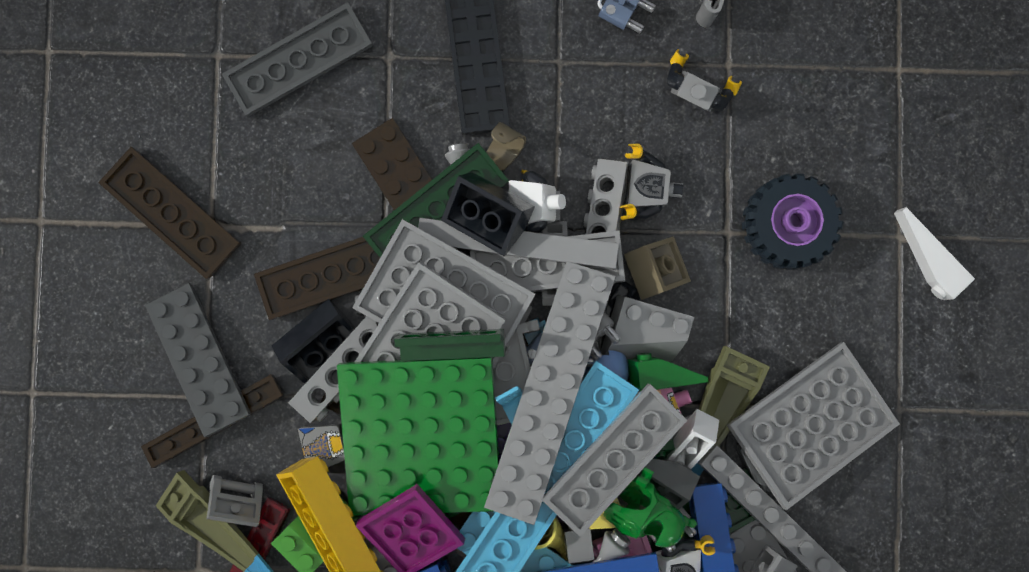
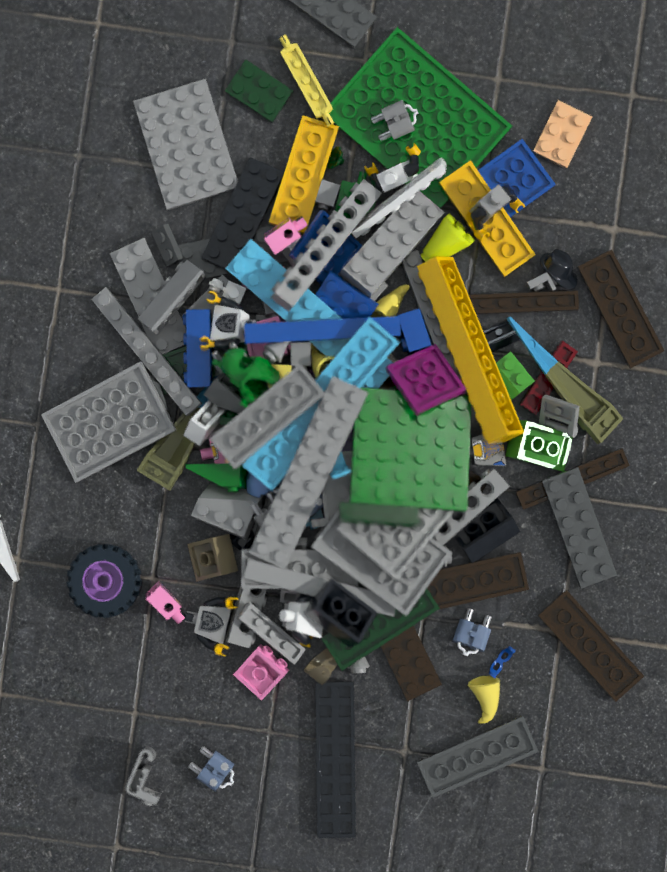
camera: 175 degrees left, 0 degrees up
(257, 457) = (540, 446): none -> bright green slope
(288, 165) = (510, 651): none -> blue cap
(293, 140) = (487, 693): none -> light yellow hat
(319, 209) = (471, 634): none -> sand blue piece
(573, 180) = (271, 633): none -> light grey plate
(578, 133) = (261, 671): none -> bright pink plate
(698, 90) = (165, 694): torso -> none
(719, 210) = (159, 596): none -> bright pink torso

